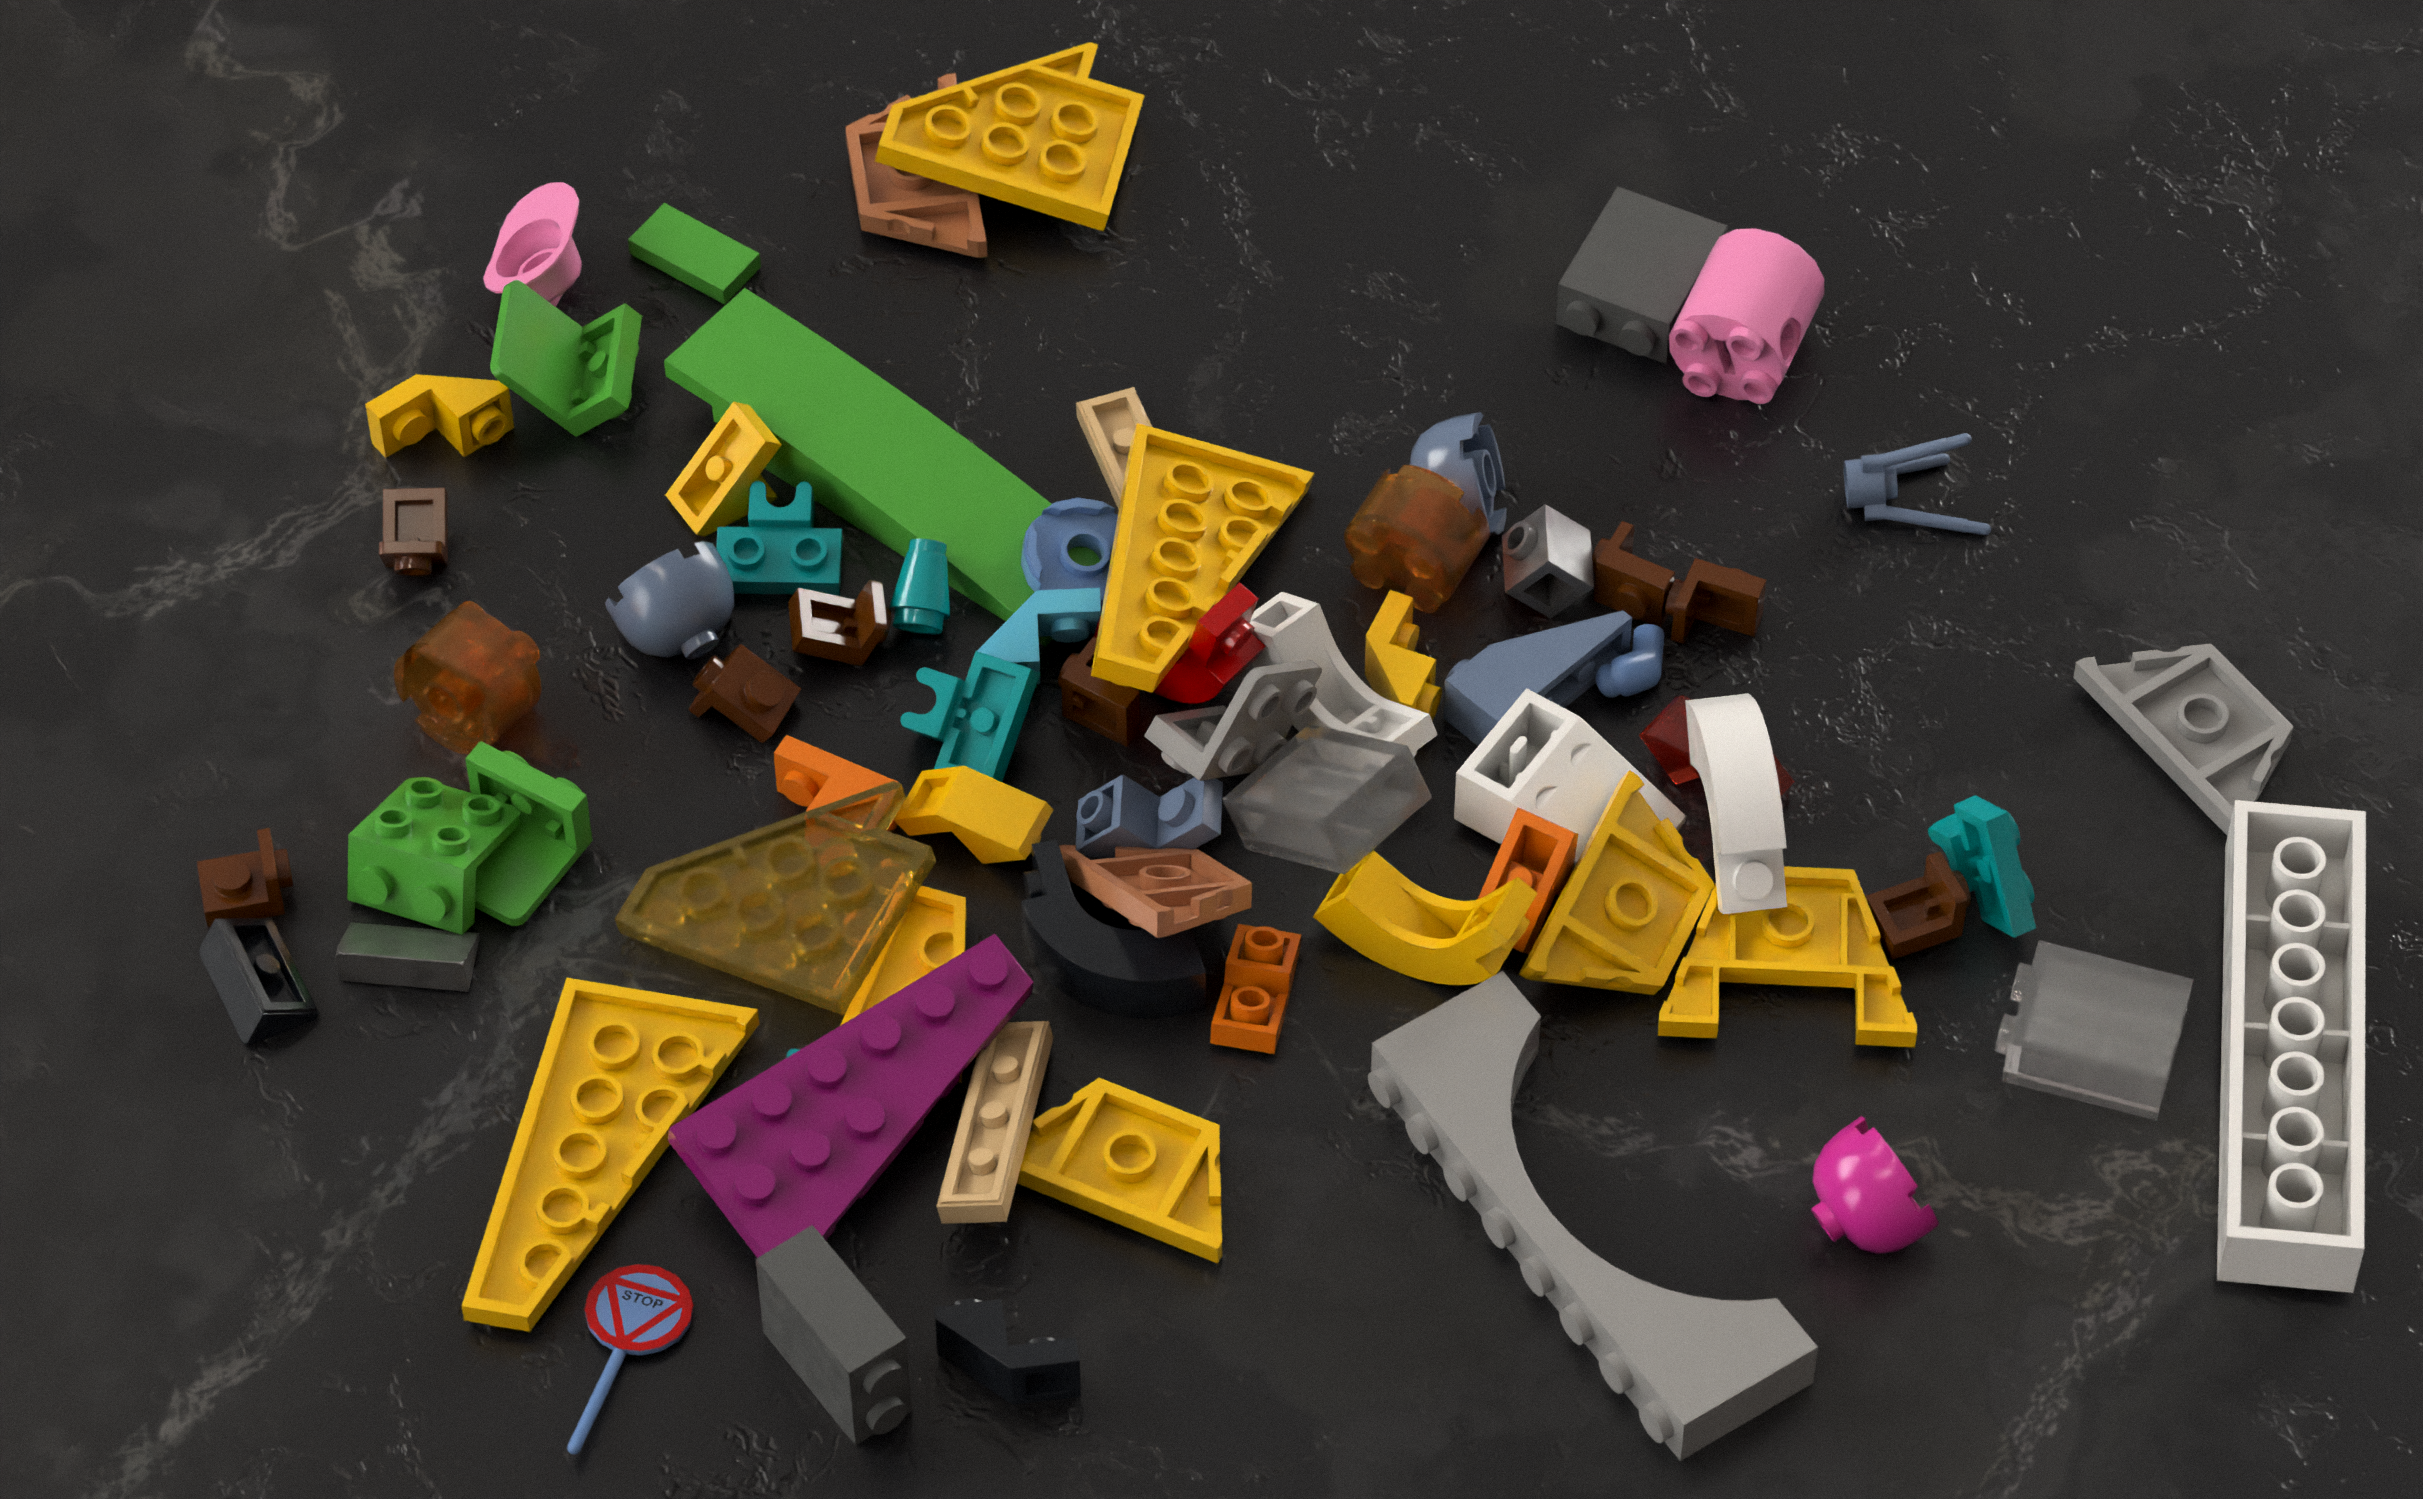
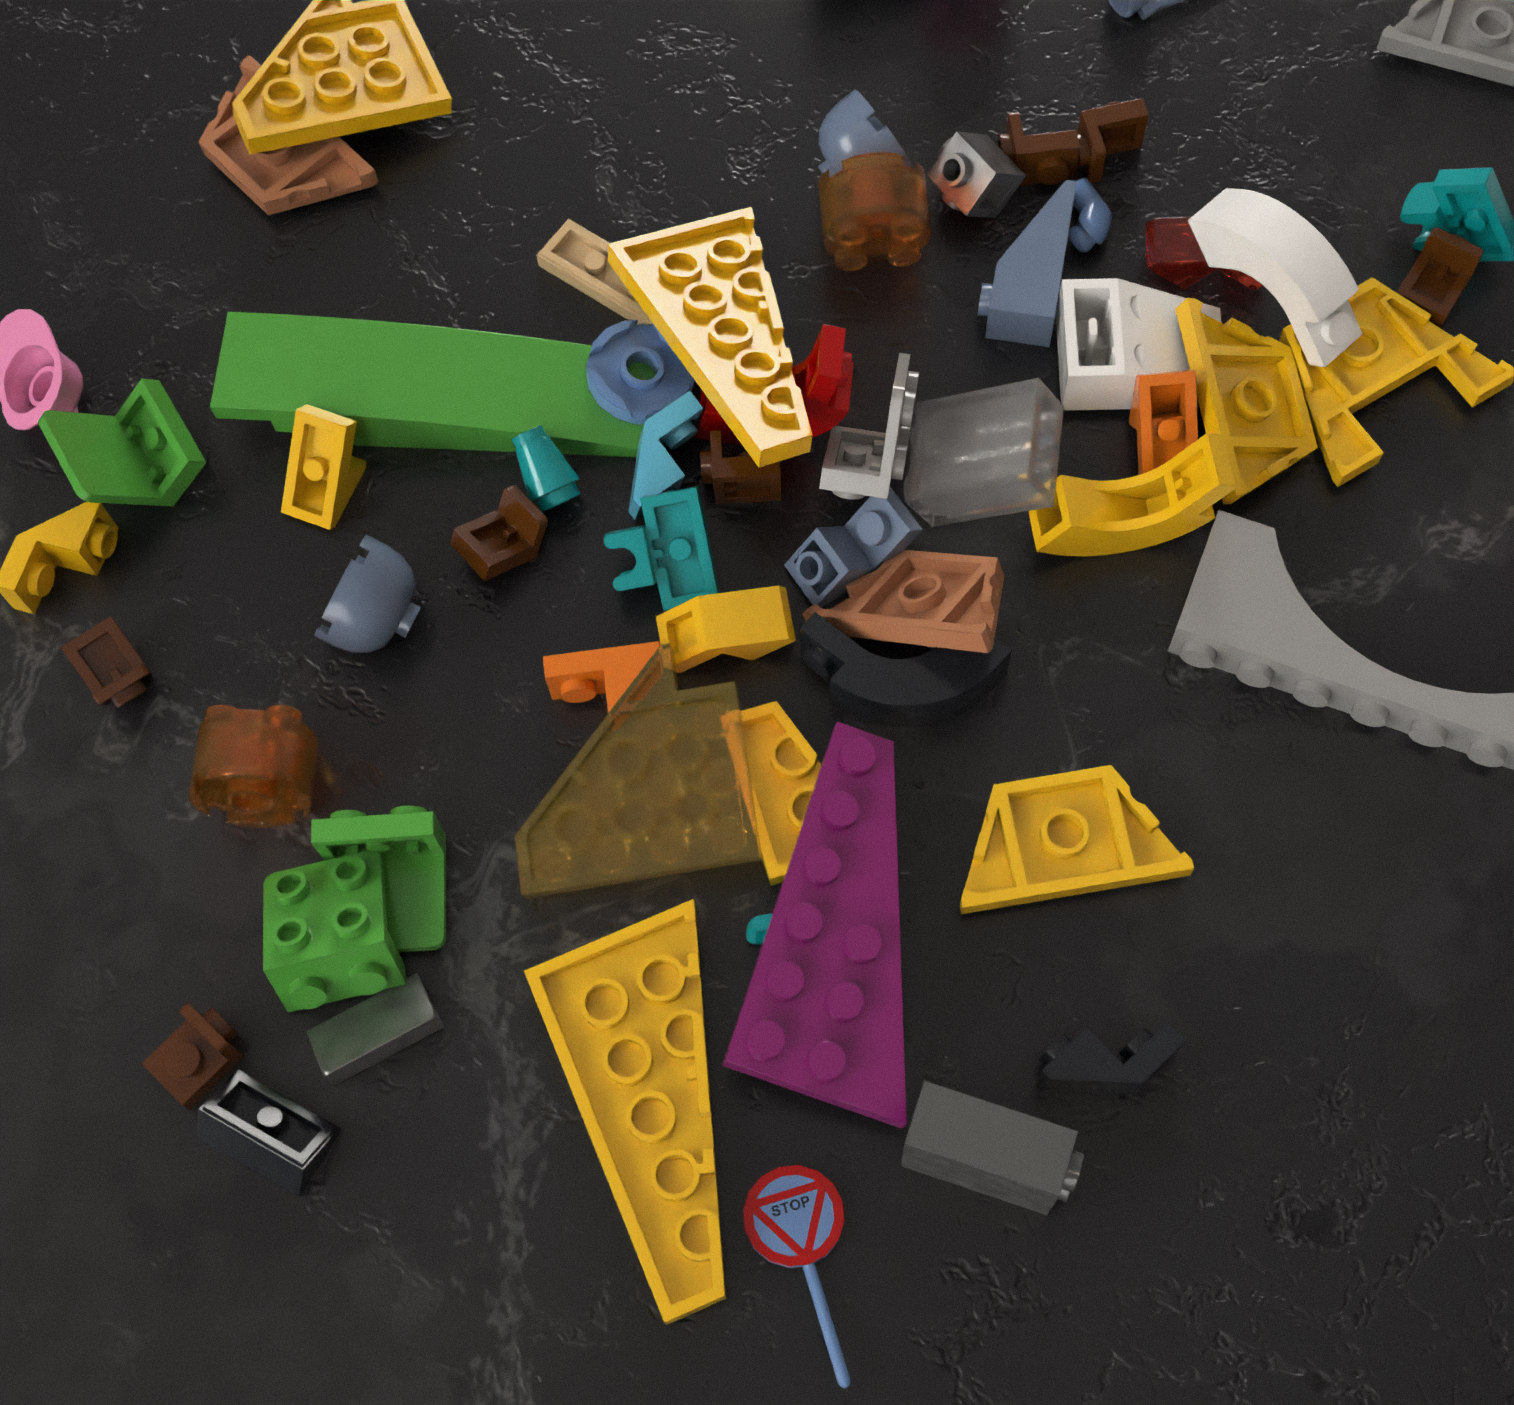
camera: 30 degrees left, 15 degrees up
(694, 253) = (155, 306): bright green tile -> none
(745, 692) = (471, 637): reddish brown bracket -> none
(782, 547) = (408, 504): teal plate -> none
(995, 1125) = (957, 882): tan tile -> none
(1255, 988) = (1038, 640): orange slope -> none
(1298, 631) = (941, 370): white arch -> none
(1391, 661) = (940, 328): yellow slope -> none

